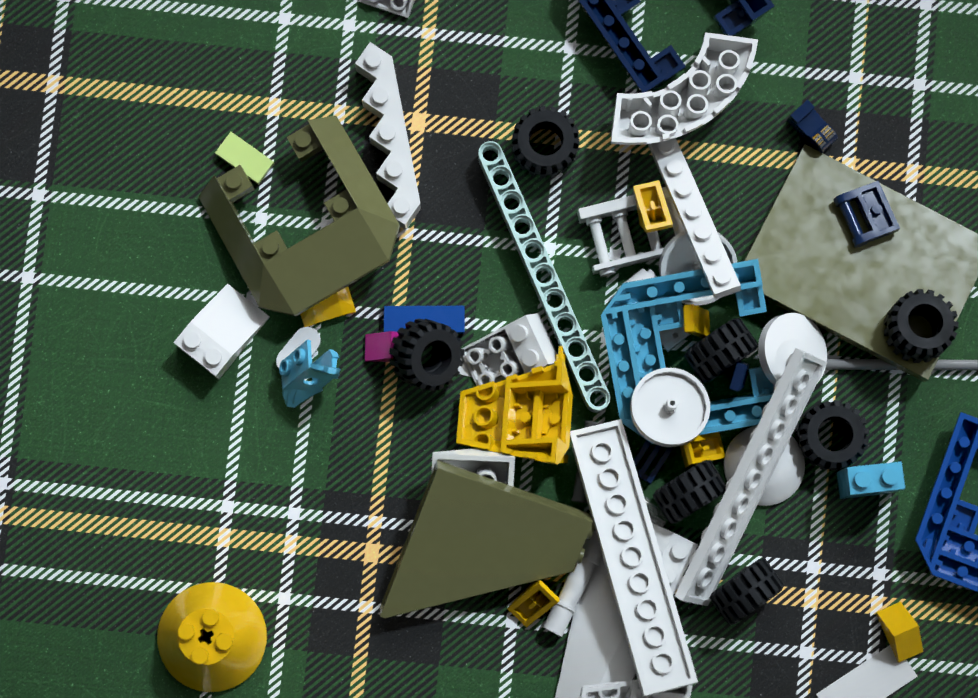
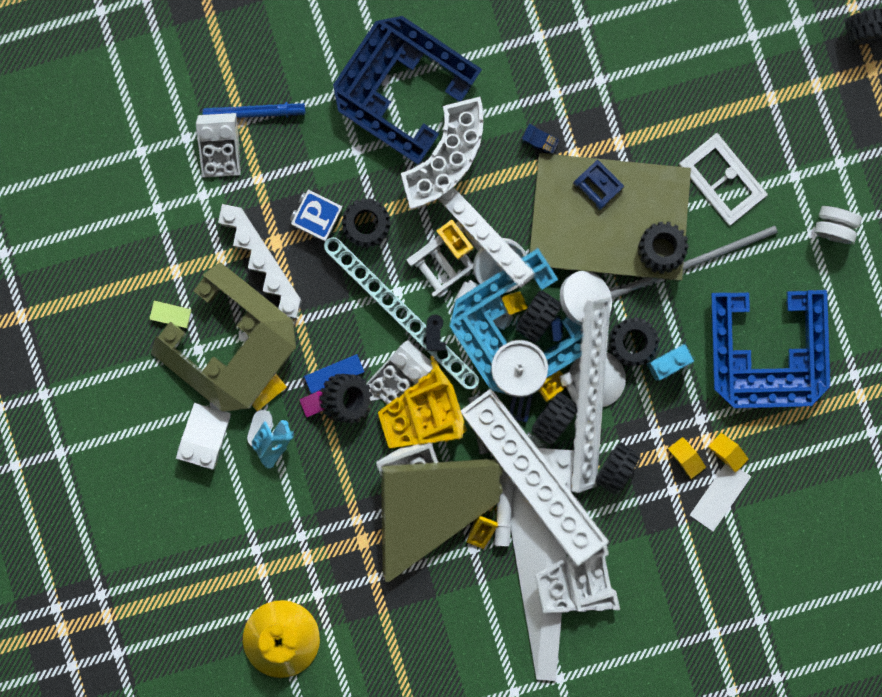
camera: 20 degrees left, 5 degrees up
(484, 107) = (316, 215): none -> piece
(579, 308) = (433, 332): none -> black leg
(725, 450) = (566, 380): none -> white bar
(843, 616) = (687, 457): none -> yellow slope

